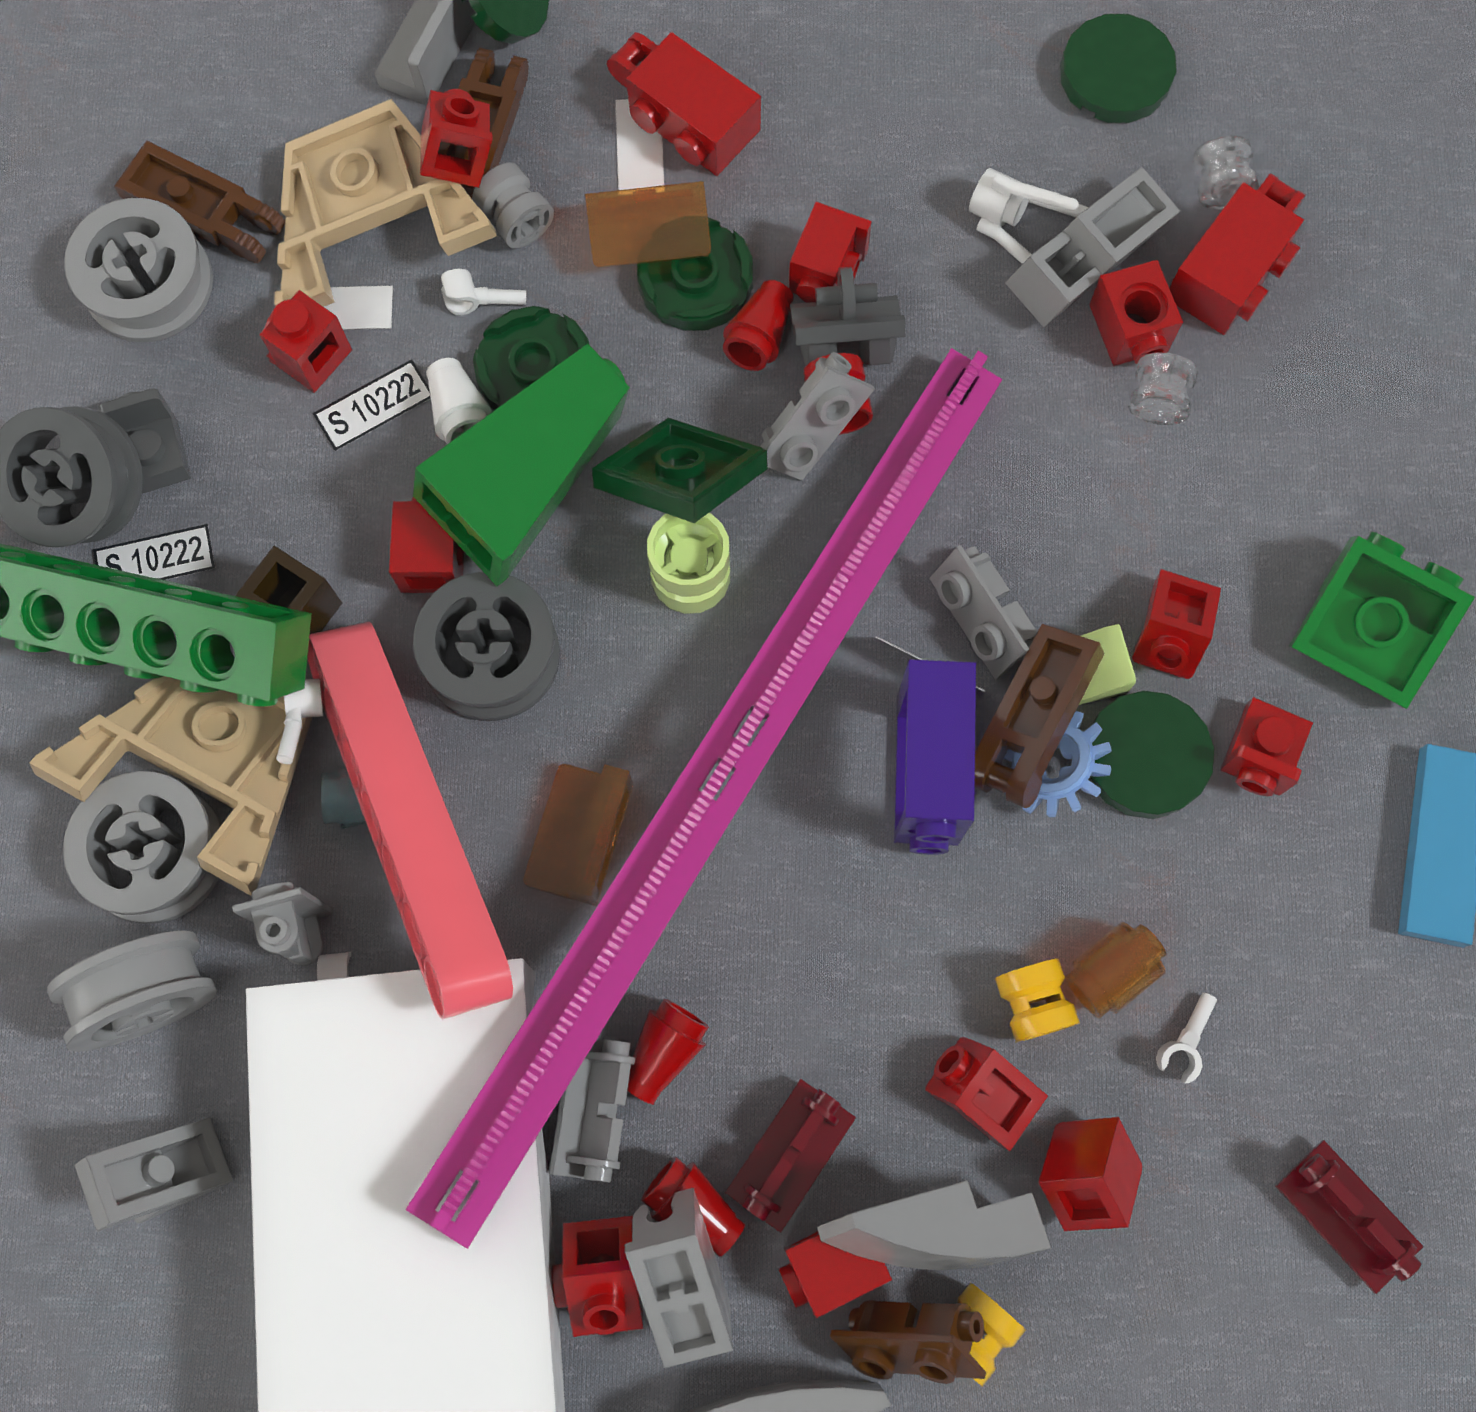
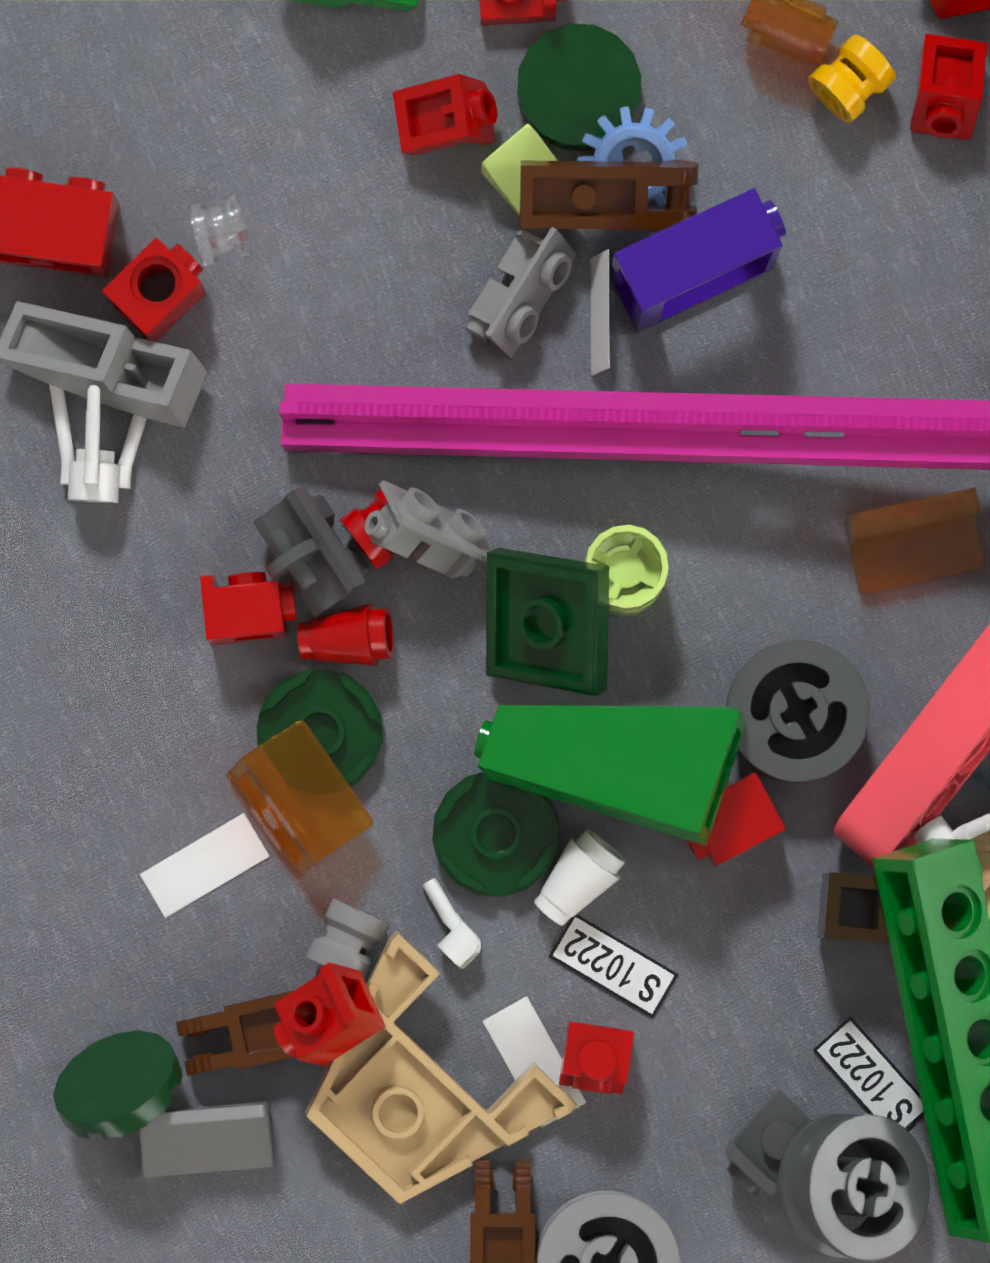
camera: 120 degrees left, 10 degrees up
(687, 99) = (145, 836): red brick -> none

